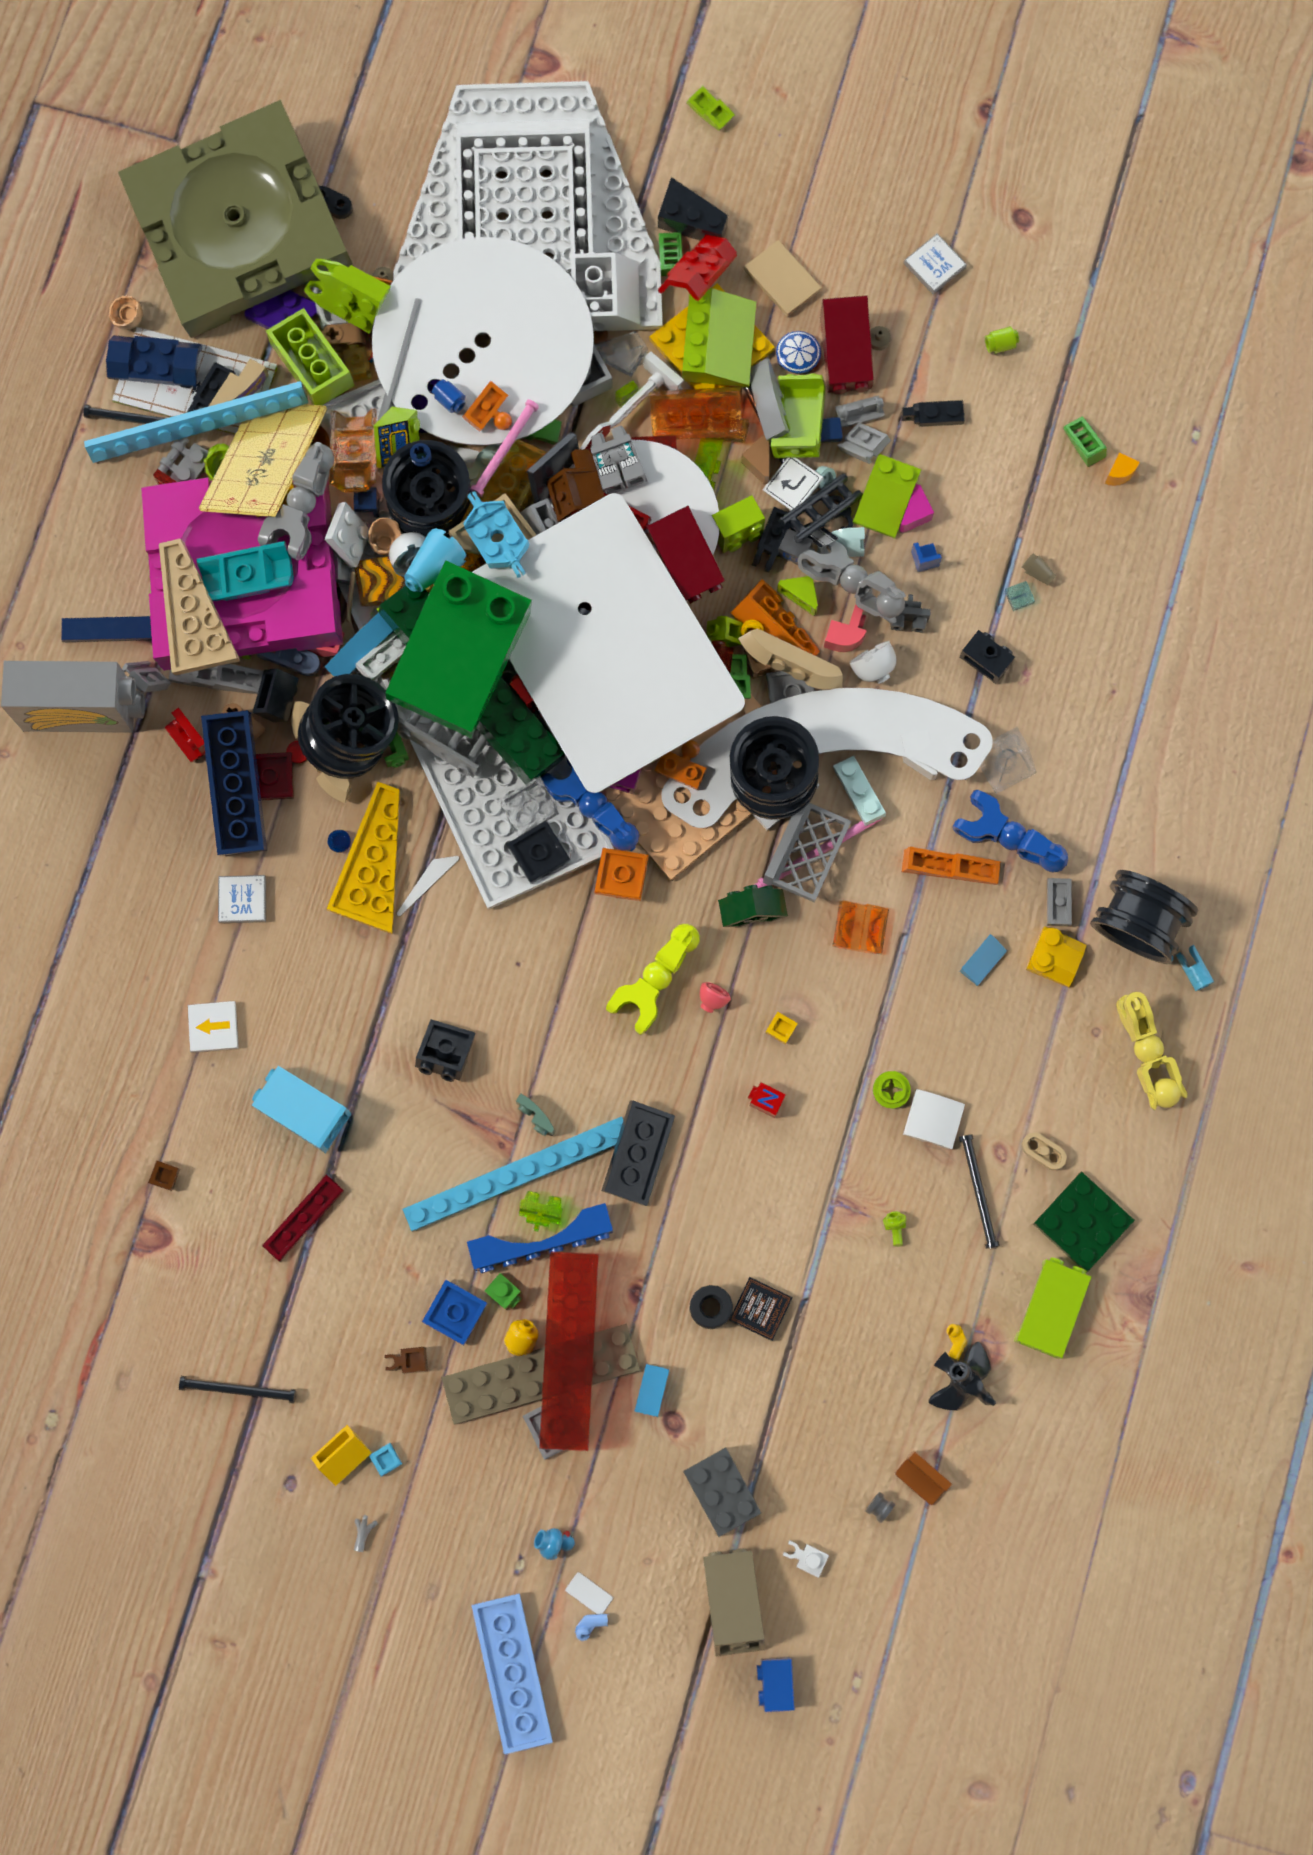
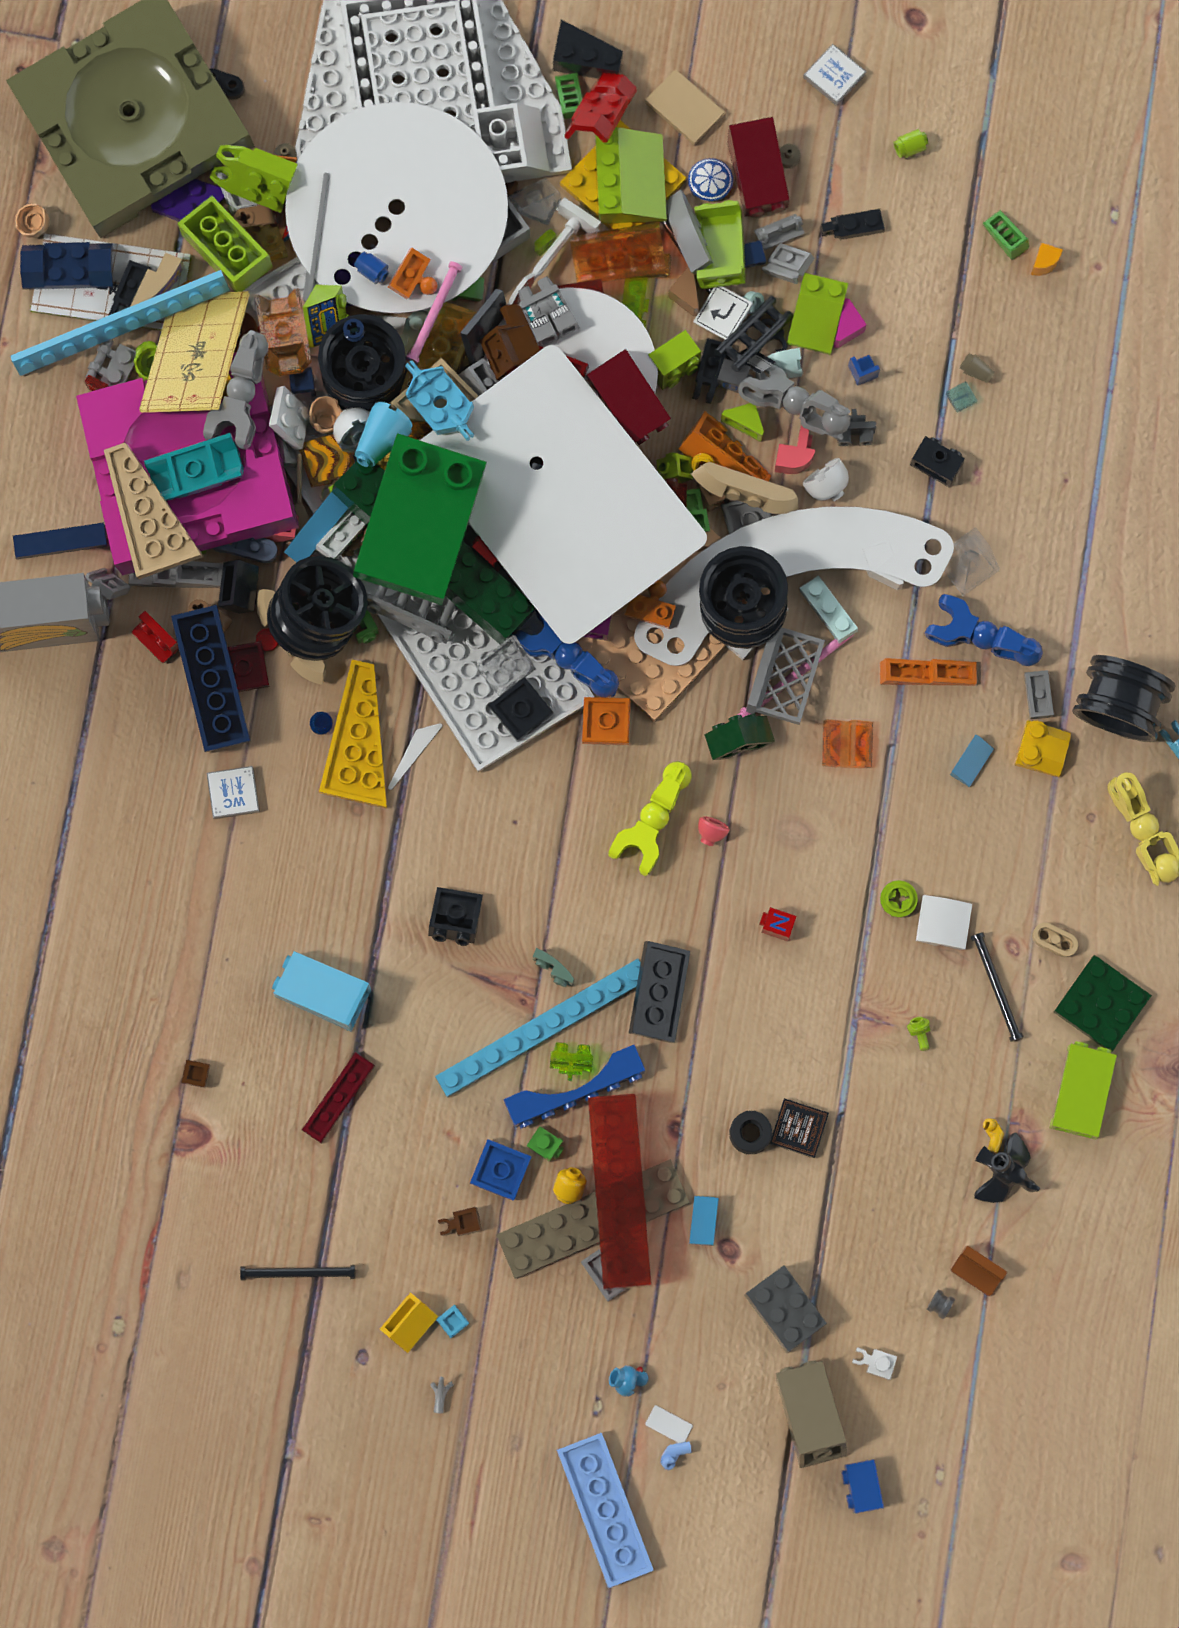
camera: 10 degrees left, 0 degrees up
(118, 415) = (41, 325): black bar -> none
(213, 1026) = (222, 921): white tile -> none
(781, 1028) = (783, 852): yellow plate -> none

